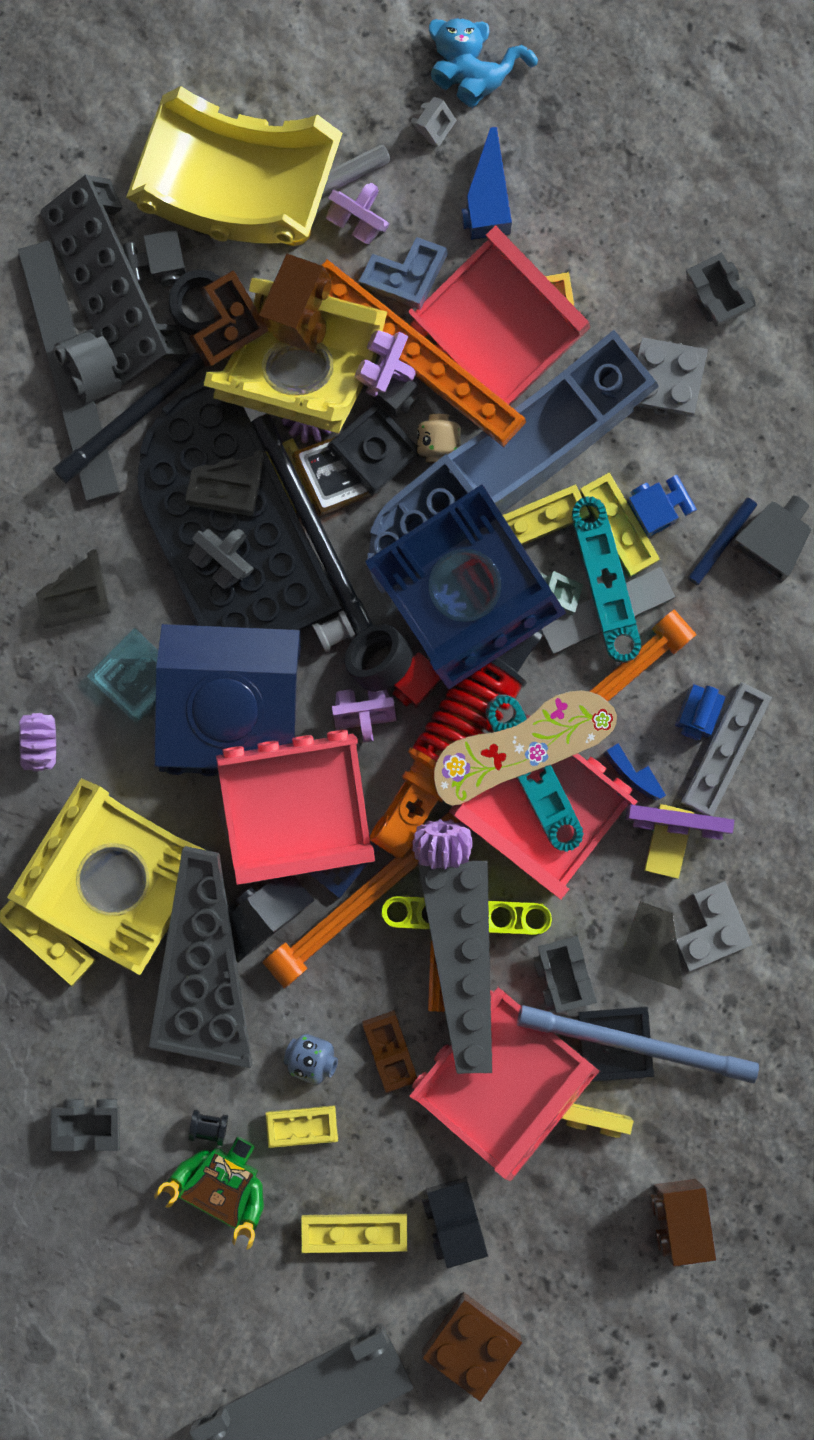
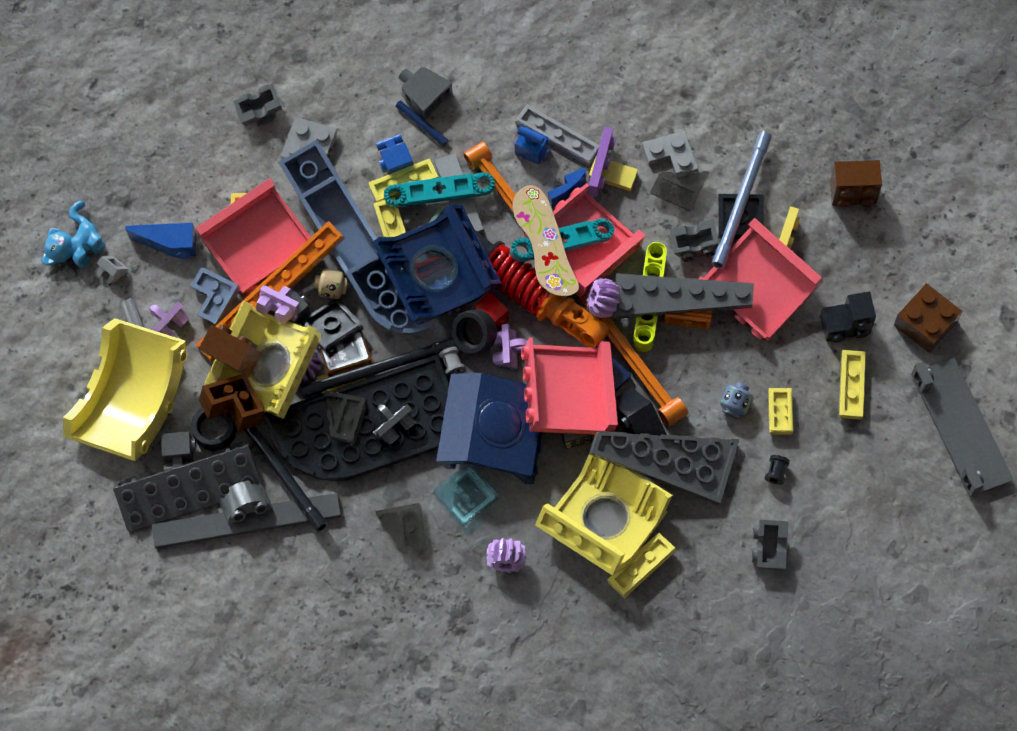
camera: 80 degrees left, 15 degrees down
(221, 1187) = (817, 461): torso -> none
(390, 1051) = (735, 354): reddish brown slope -> none

